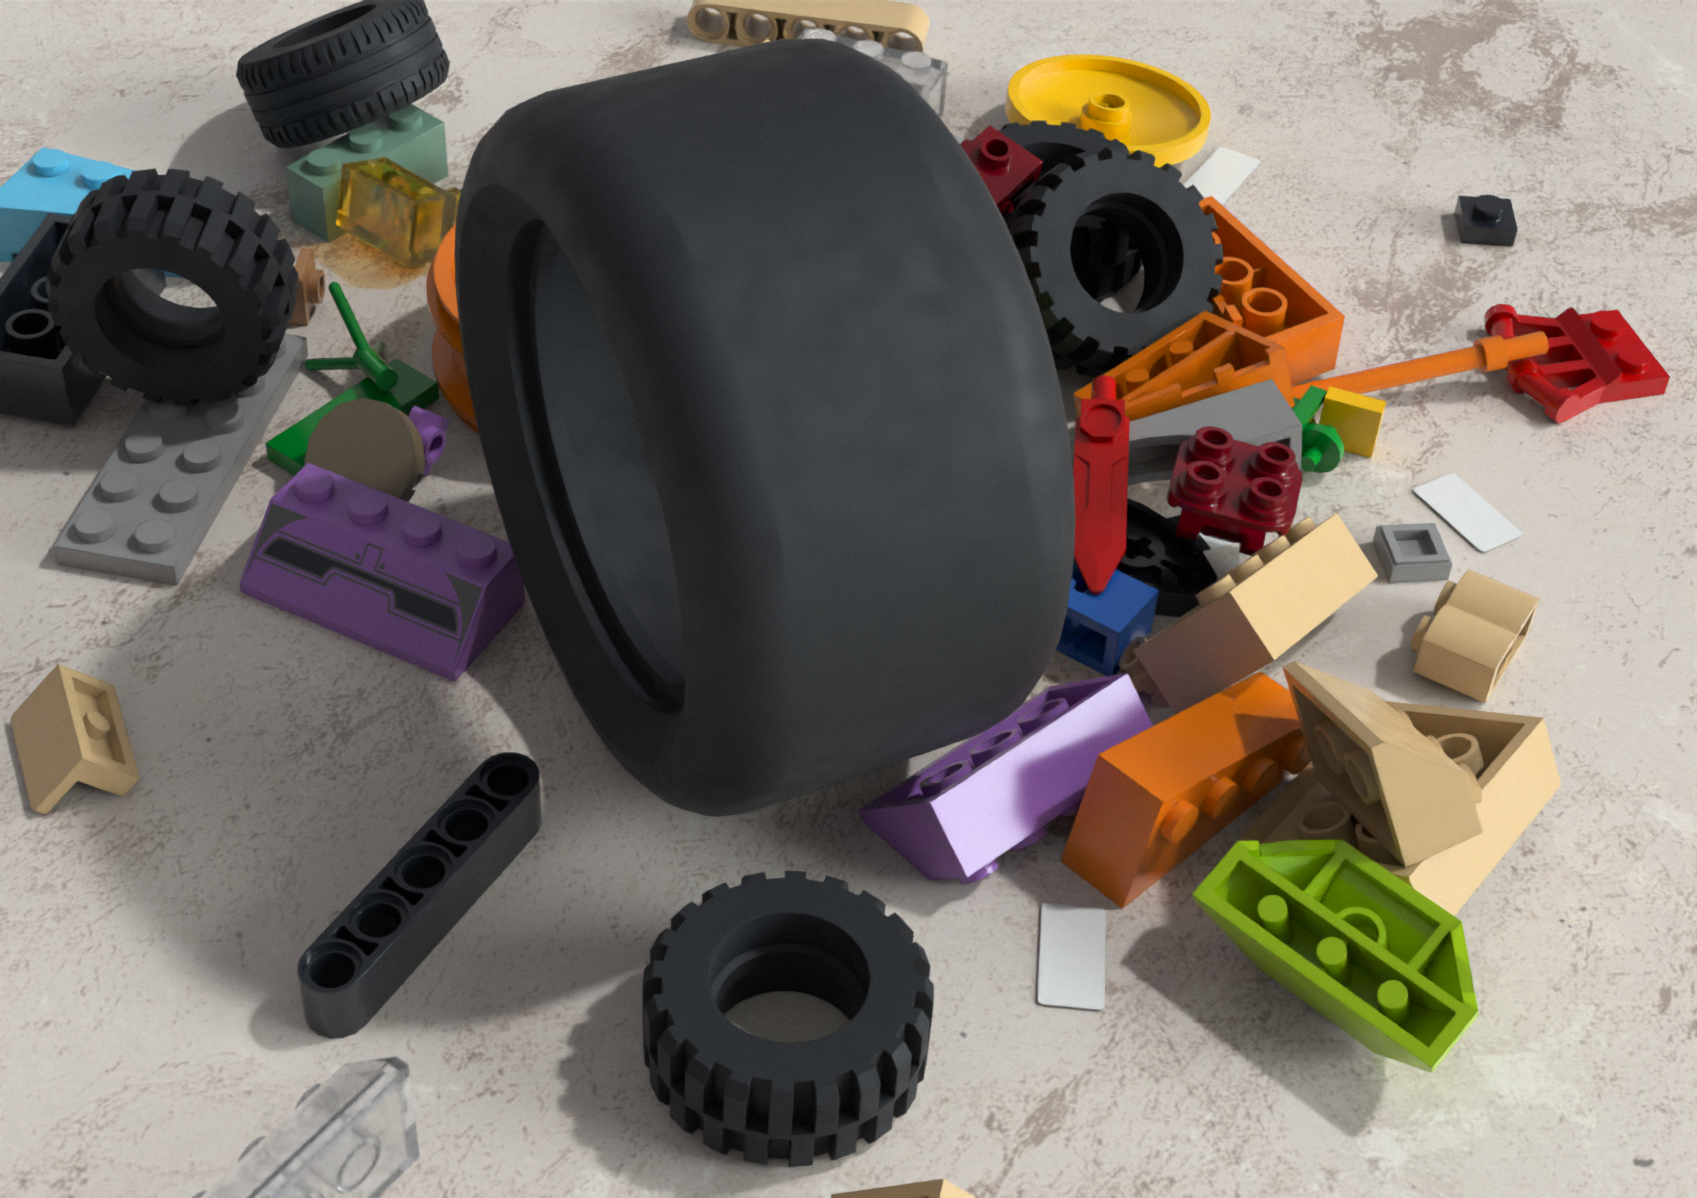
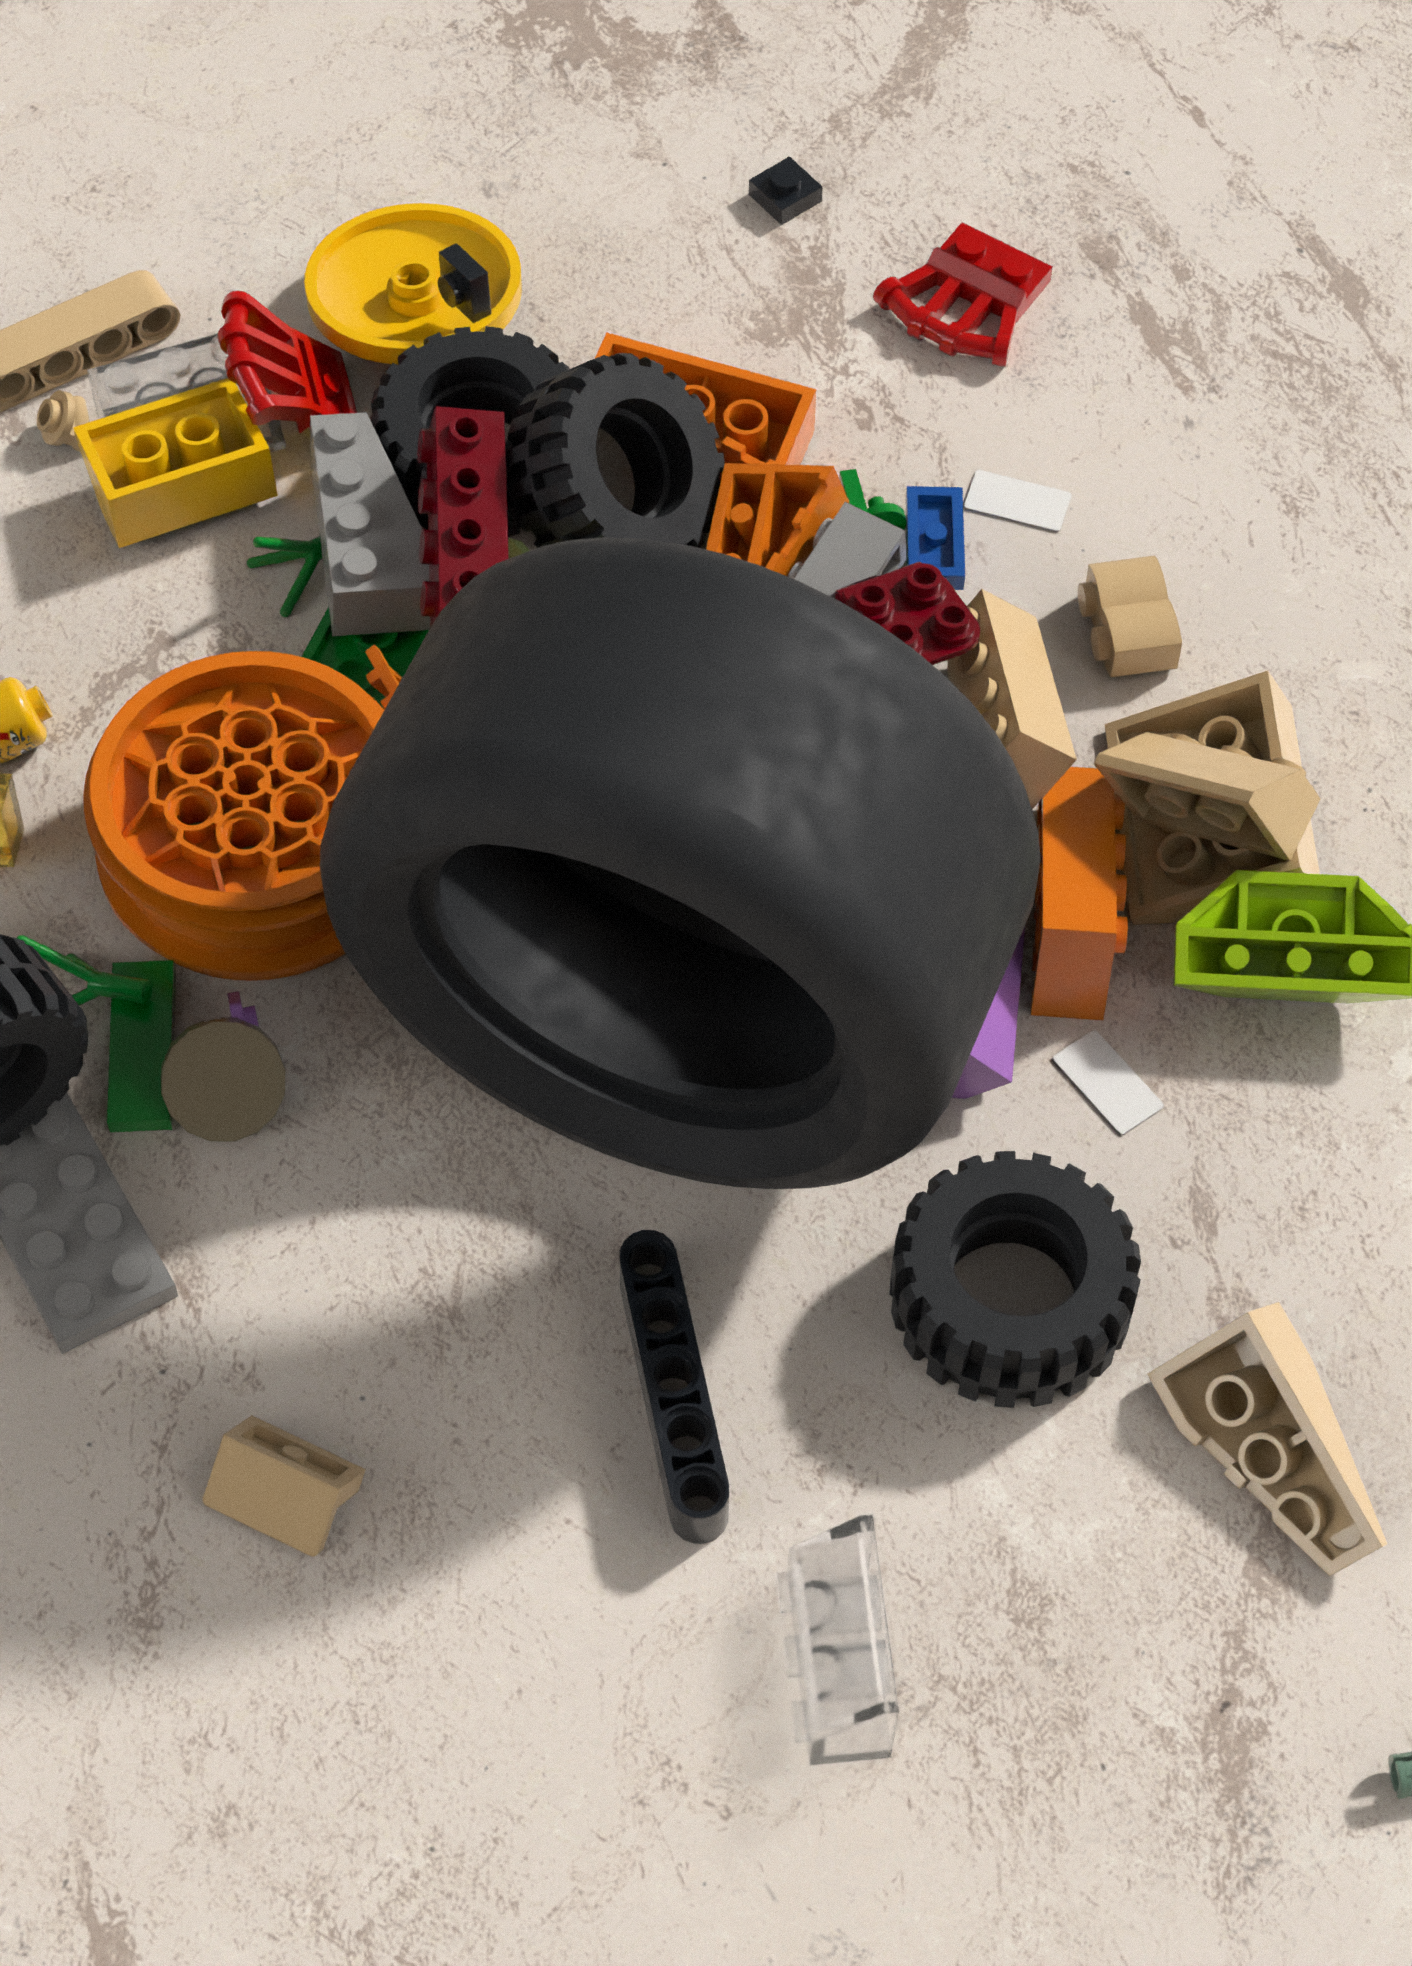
camera: 40 degrees left, 15 degrees up
(383, 571) = (342, 1163): medium lavender slope -> none
(946, 79) = (284, 360): none -> red plate
(1128, 108) = (464, 283): none -> black plate
(1222, 174) = (542, 281): white sticker -> none
(1354, 418) = (885, 475): yellow tile -> none
(1356, 483) = (936, 530): none -> blue plate
(1412, 552) = (1019, 569): light grey tile -> none
(1485, 355) = (922, 346): orange bar -> none

